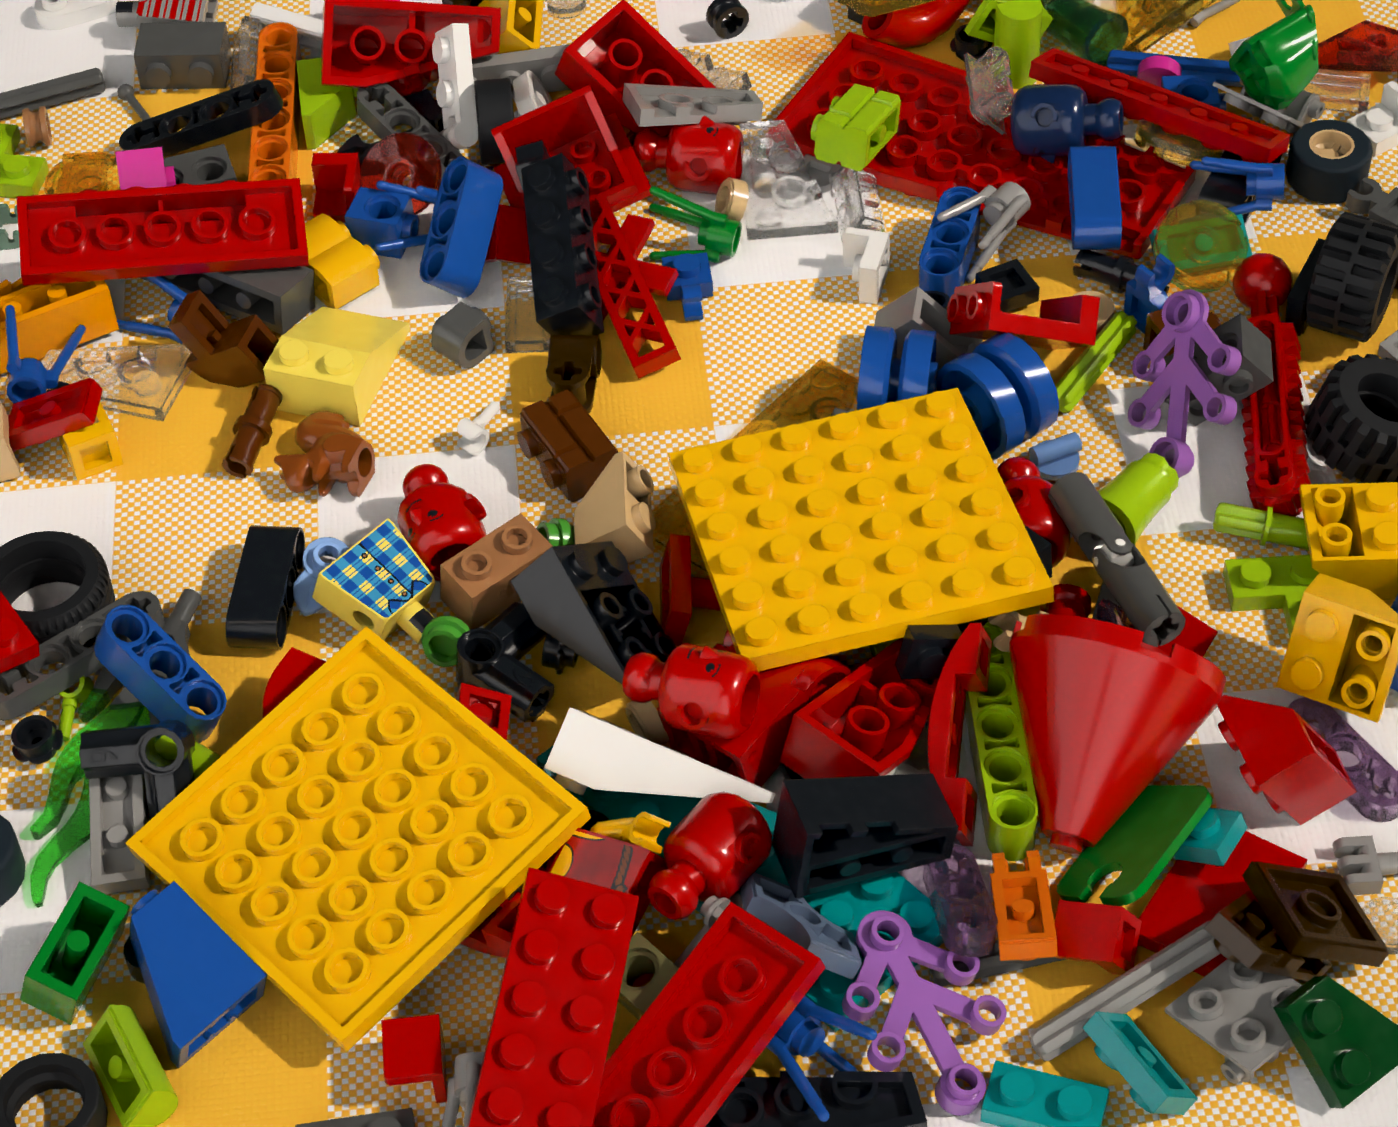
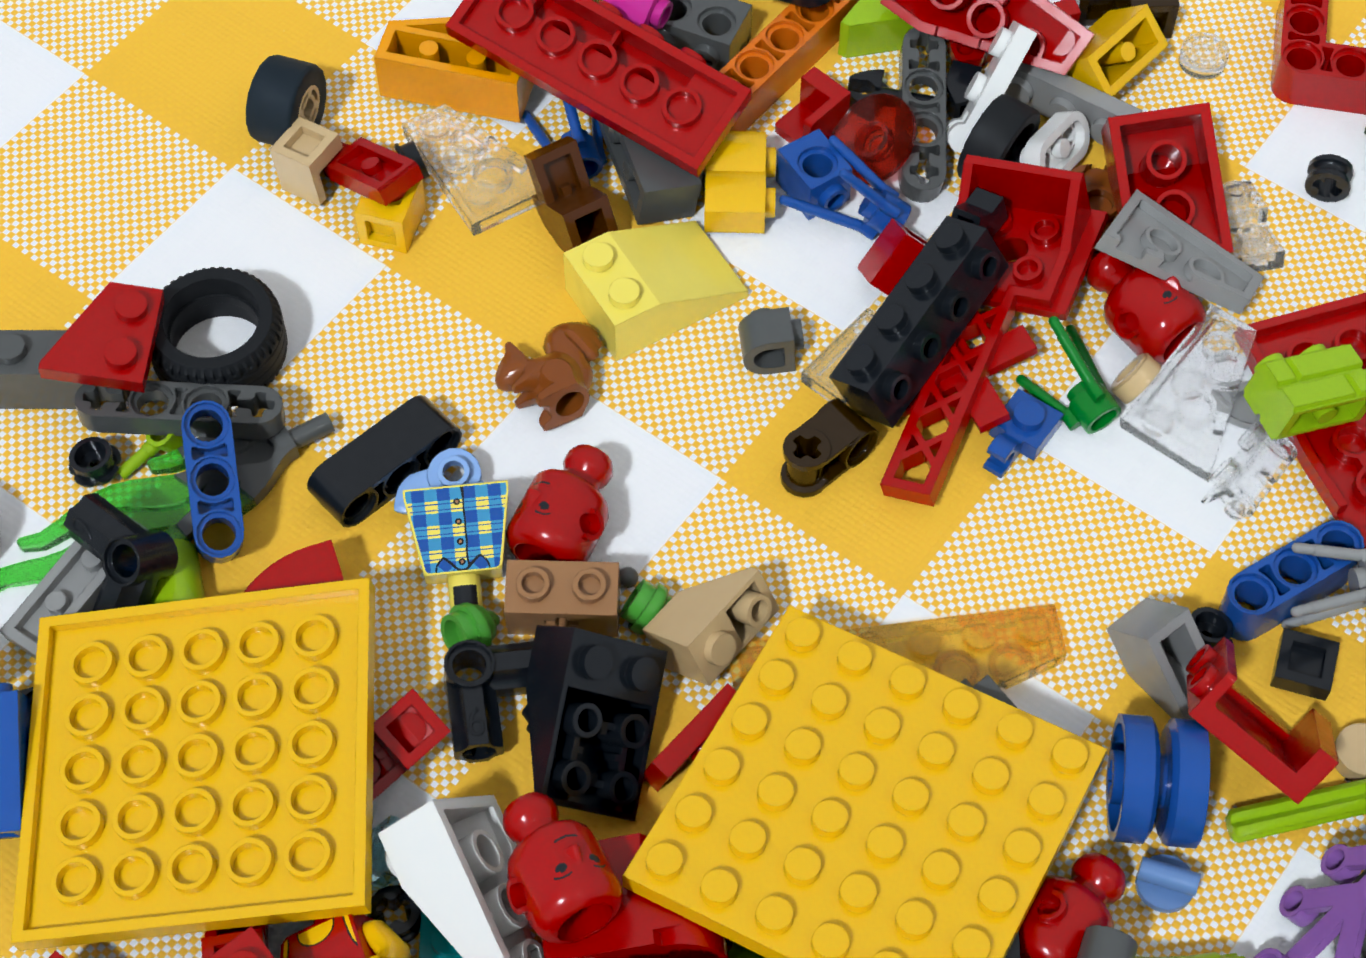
camera: 40 degrees right, 10 degrees up
(28, 375) = (390, 122): blue plant -> none
(252, 431) = (520, 301): reddish brown pin -> none
(461, 227) = (858, 233): blue beam -> none
(473, 433) = (687, 440): white hand -> none
(565, 443) = (748, 517): reddish brown brick -> none
(869, 258) = (1198, 540): white bracket -> none
(892, 379) = (1082, 681): blue wheel -> none

